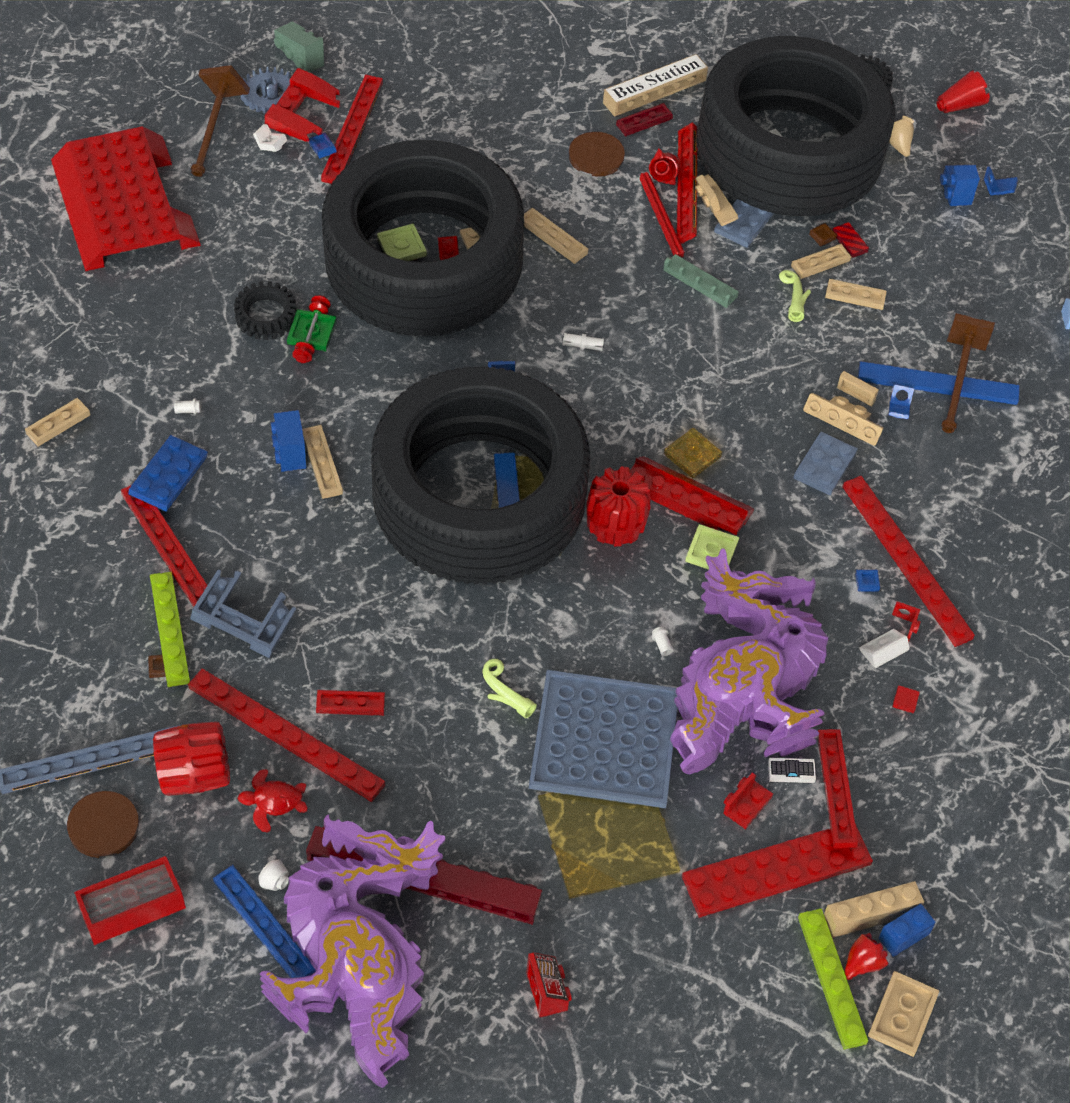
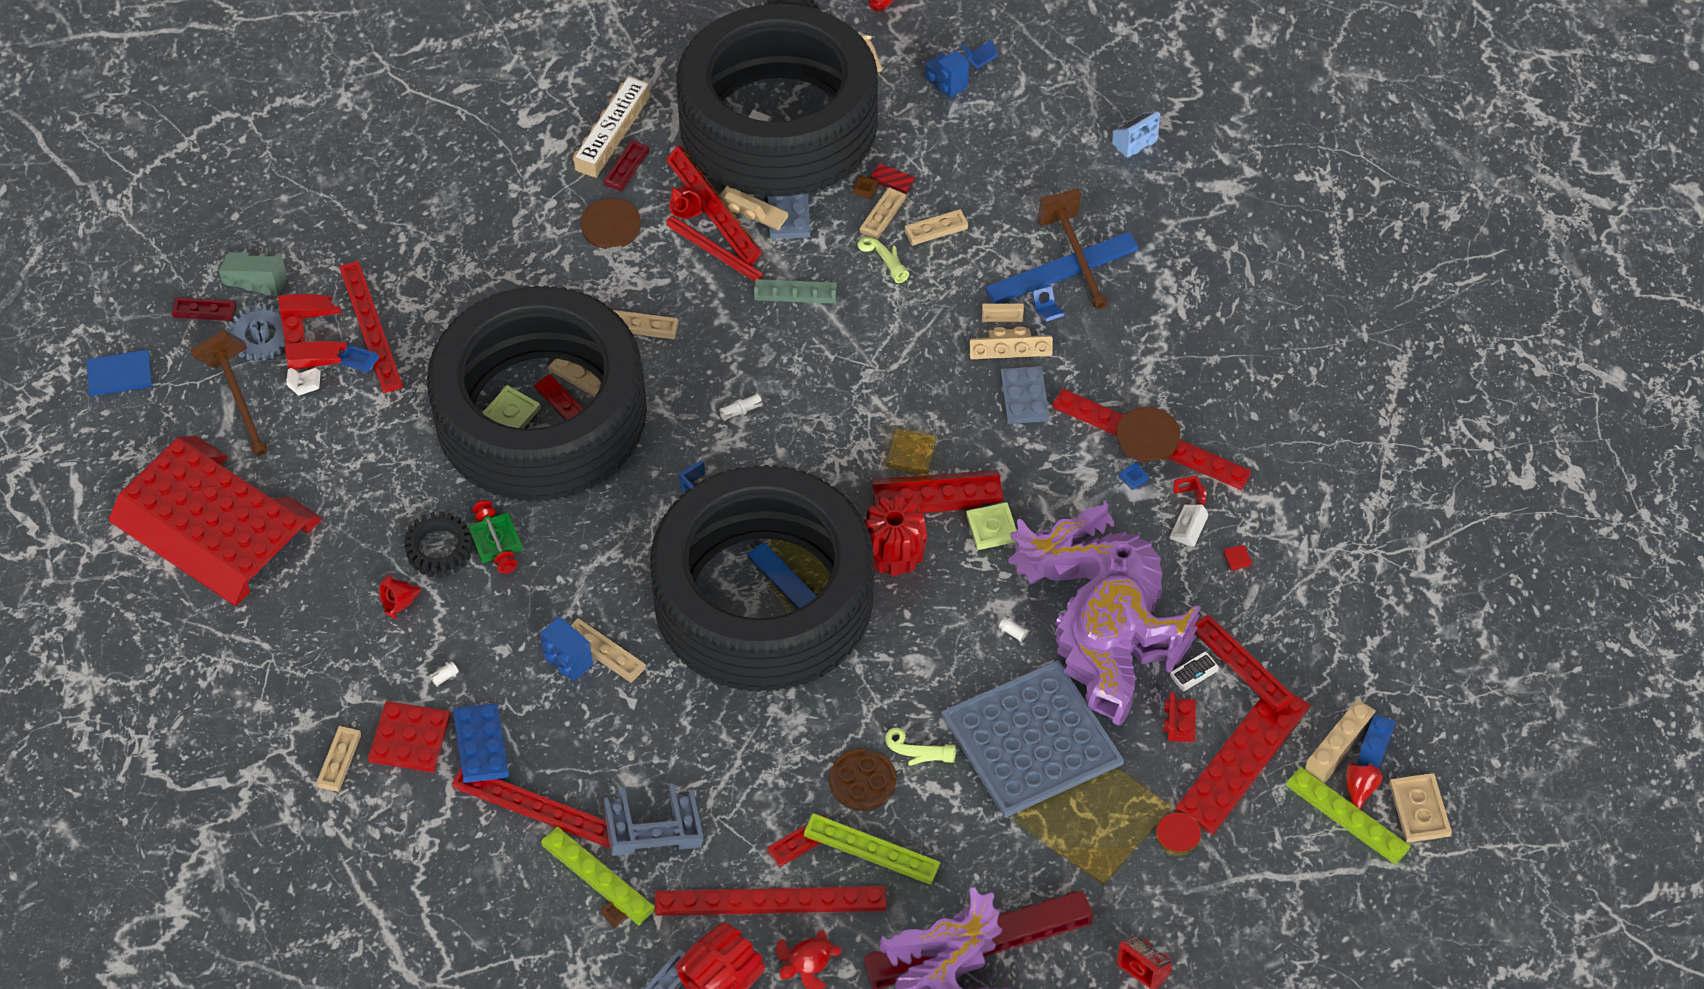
camera: 30 degrees left, 0 degrees up
(123, 438) = (409, 736): none -> red plate
(148, 64) = (119, 372): none -> blue tile
(203, 329) = (397, 595): none -> red hat
(245, 53) = (204, 309): none -> dark red tile
(398, 744) = (872, 849): none -> lime plate
(440, 685) = (862, 779): none -> reddish brown tile
(667, 897) = (1178, 834): none -> red tile
(904, 552) = (1148, 434): none -> reddish brown tile

